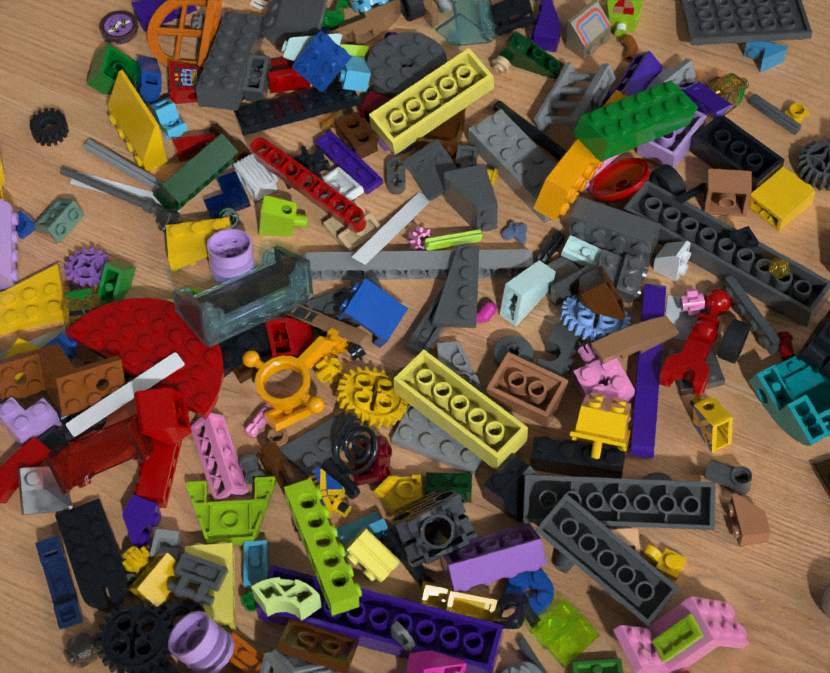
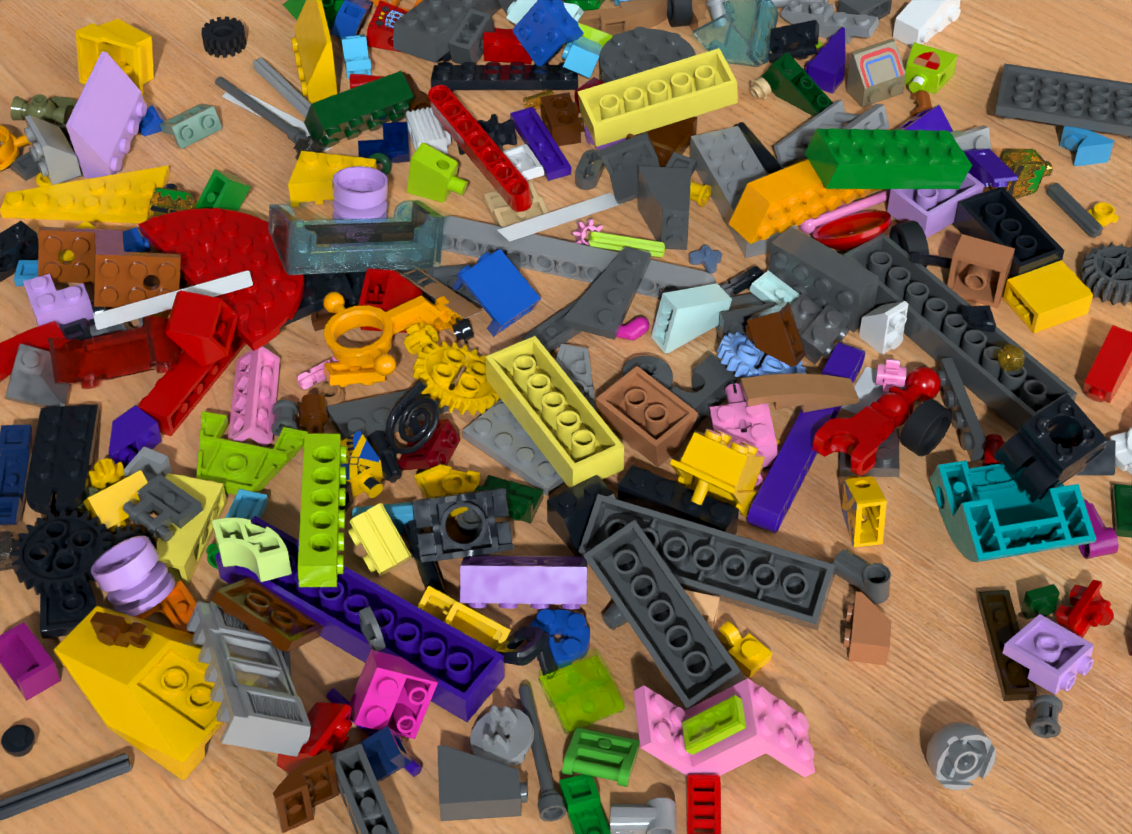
camera: 15 degrees right, 10 degrees down
(86, 268) = (194, 174): medium lavender gear -> none

